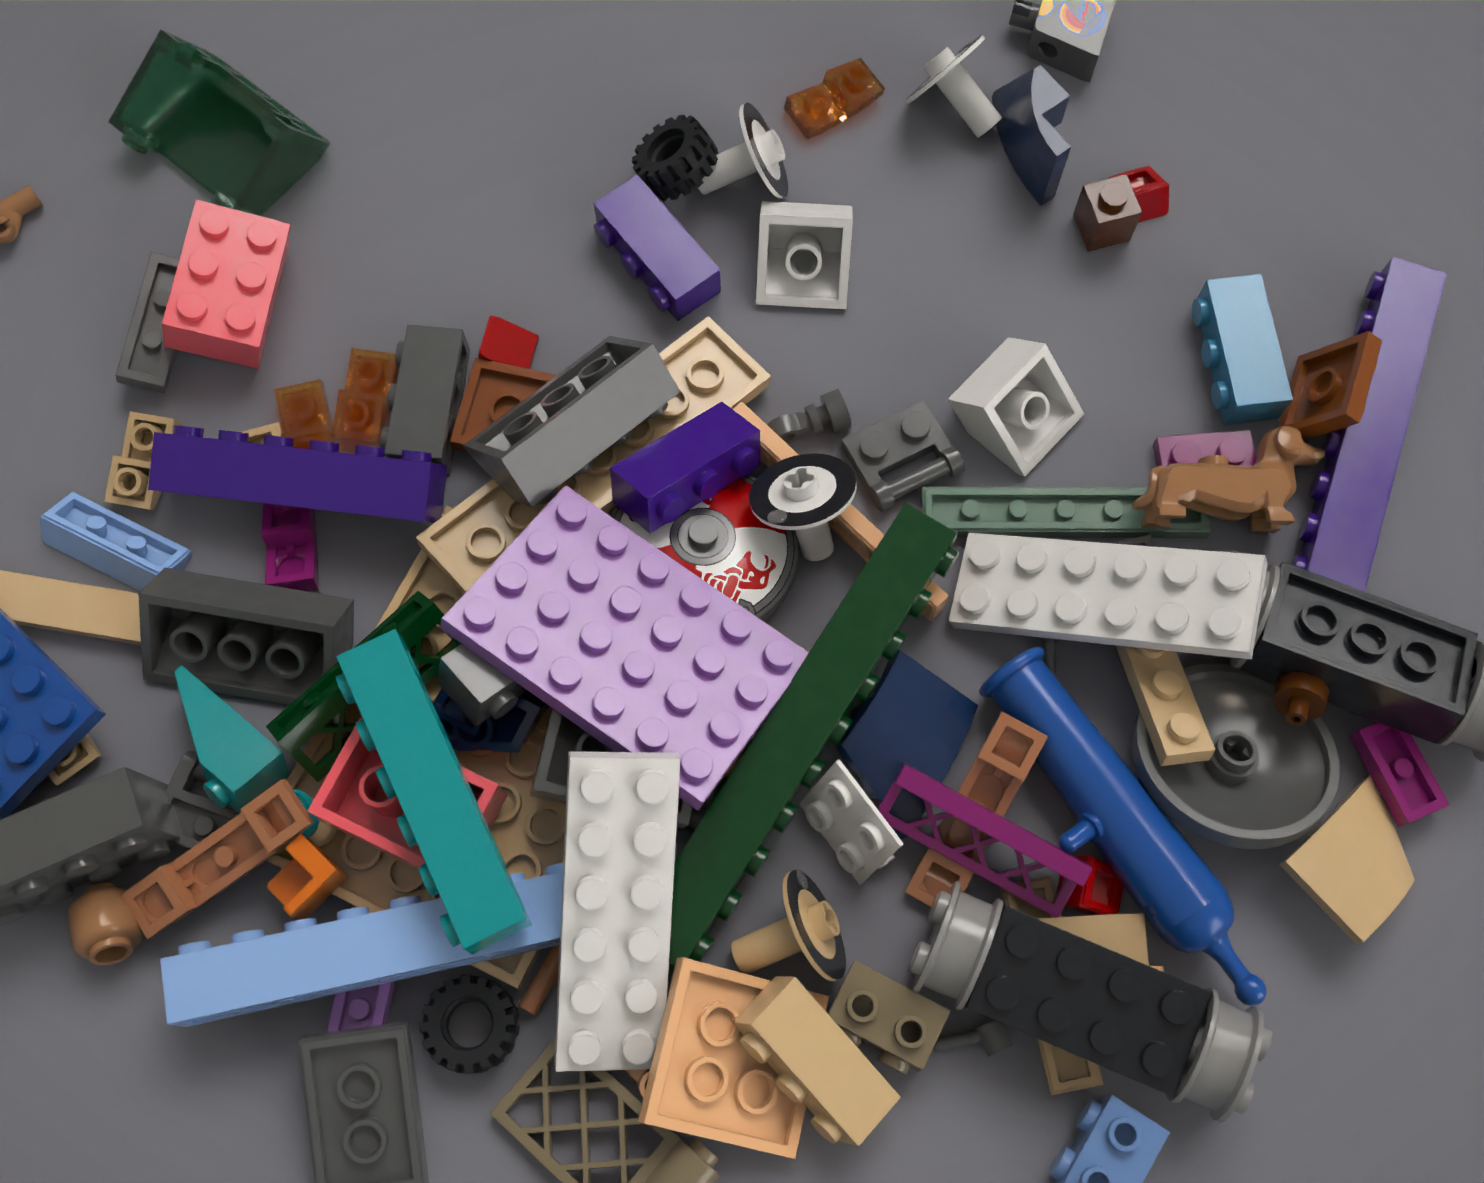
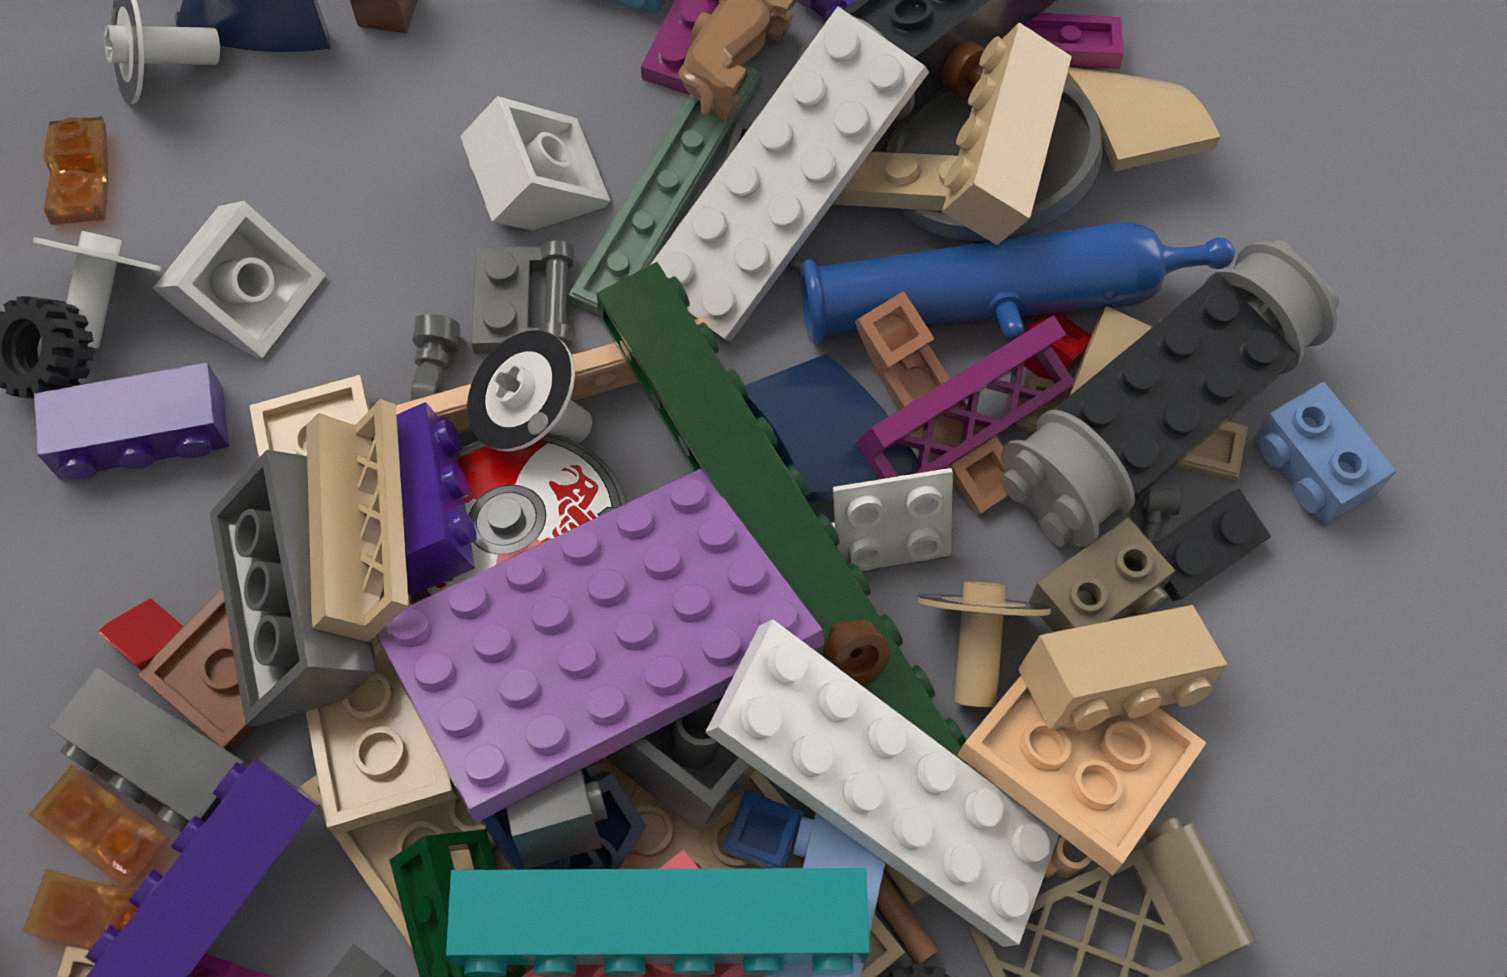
camera: 65 degrees left, 5 degrees down
(546, 839) = (762, 832): none -> blue tile
(632, 431) = (356, 523): none -> tan fence
(713, 839) = (857, 649): none -> reddish brown tile
(973, 1091) = (1210, 543): none -> black plate
(1241, 751) = (1006, 134): none -> tan brick

